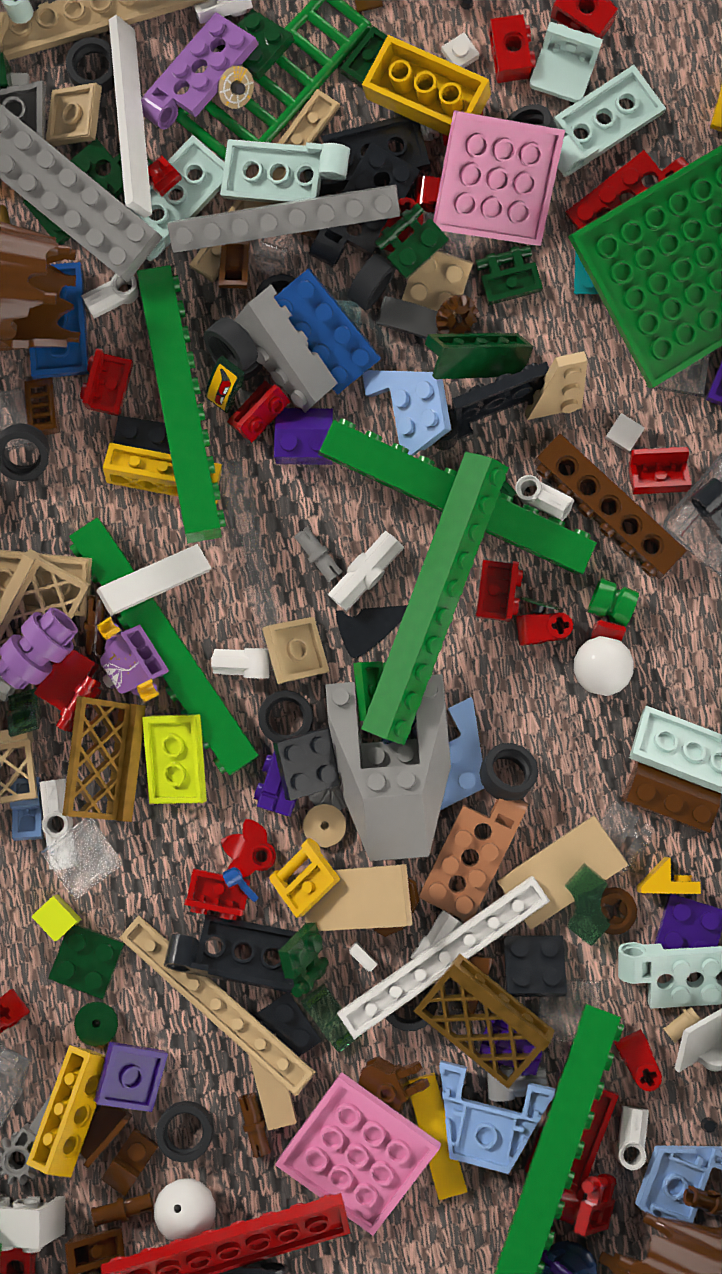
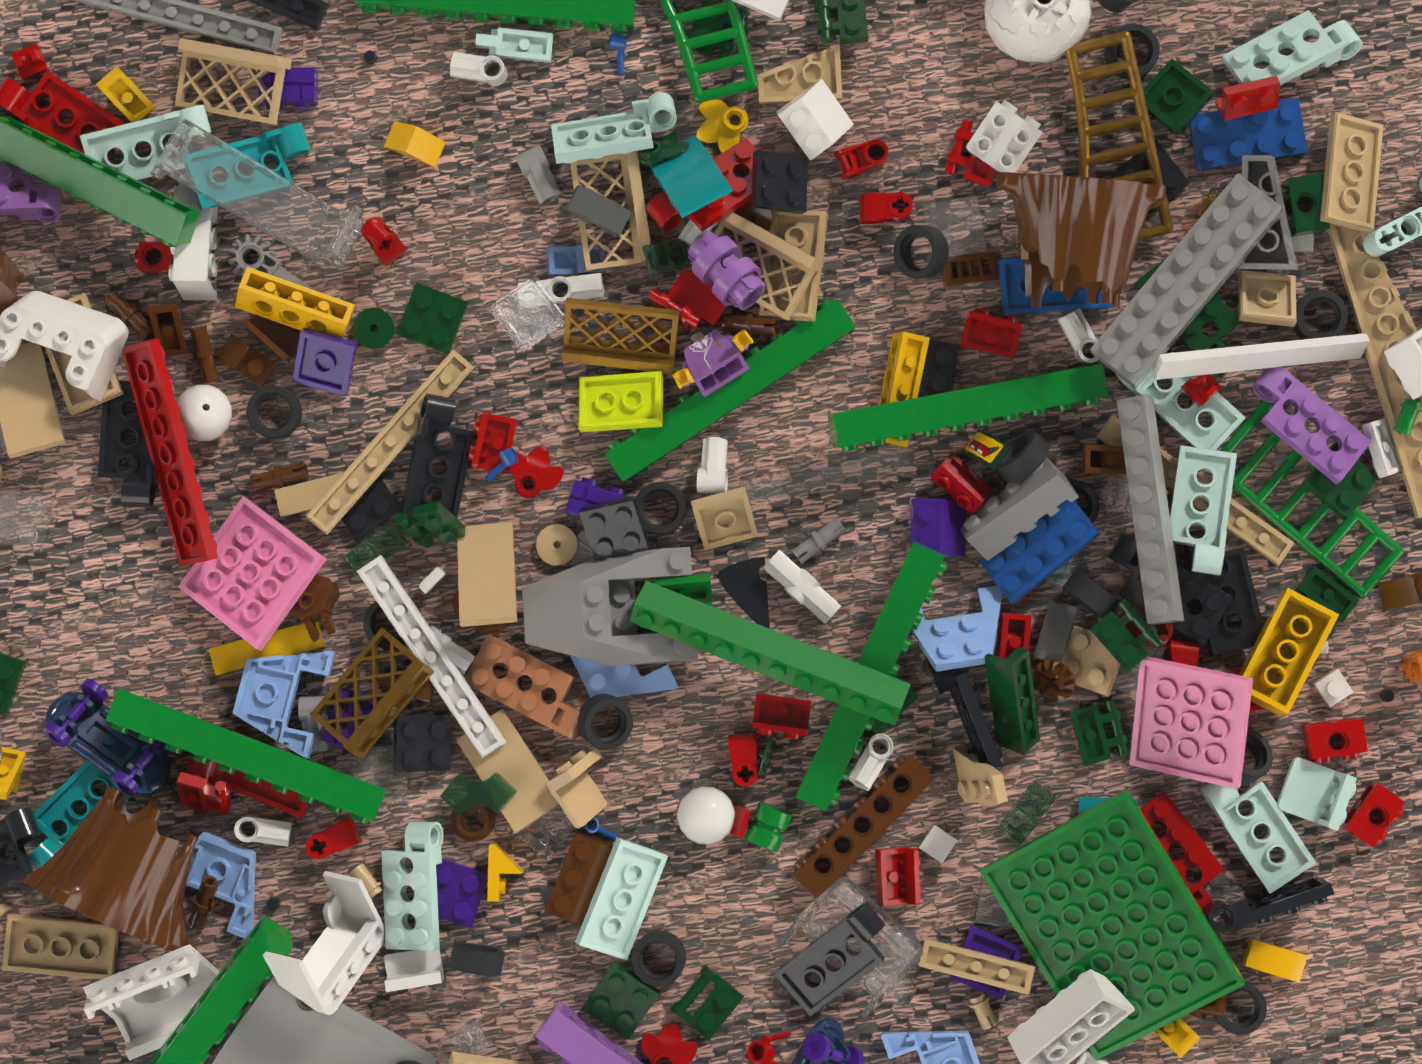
camera: 85 degrees right, 5 degrees up
(56, 917) = (472, 290): neon yellow panel -> none
(153, 579) = (793, 381): white tile -> none
(235, 87) = (1292, 461): tan piece -> none
(310, 884) = (500, 531): yellow plate -> none
(411, 355) = (1012, 633): none -> red brick
(580, 801) = (576, 789): none -> tan bracket
(598, 348) = (1027, 811): none -> clear green slope
(618, 782) = (594, 827): none -> blue hand
(681, 109) = (1265, 906): none -> black hinge

